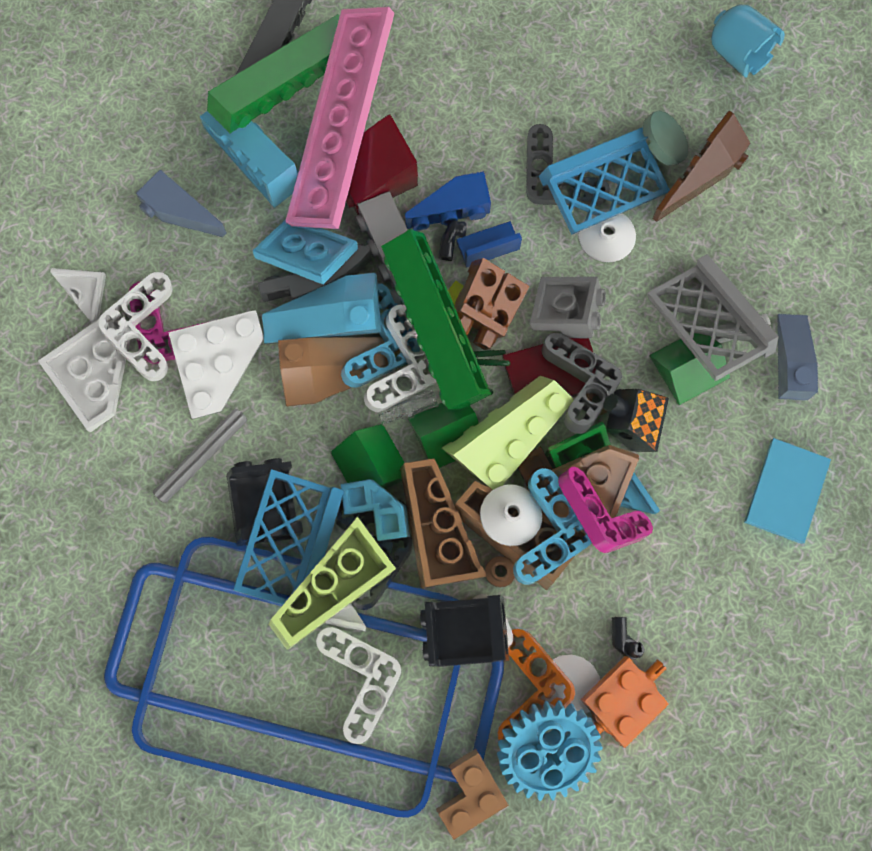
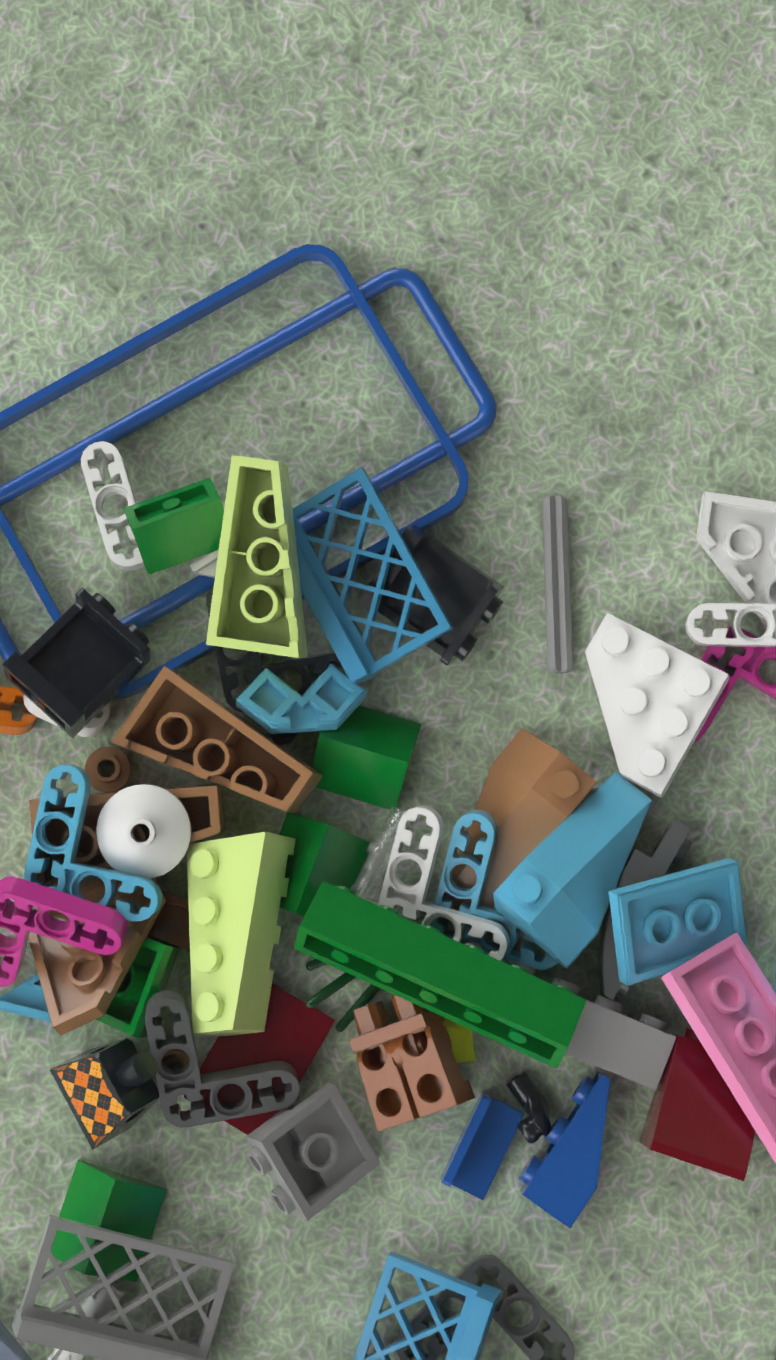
camera: 140 degrees right, 5 degrees up
(350, 653) = (177, 525): none -> green panel
(609, 247) = (335, 1279): white dish -> none

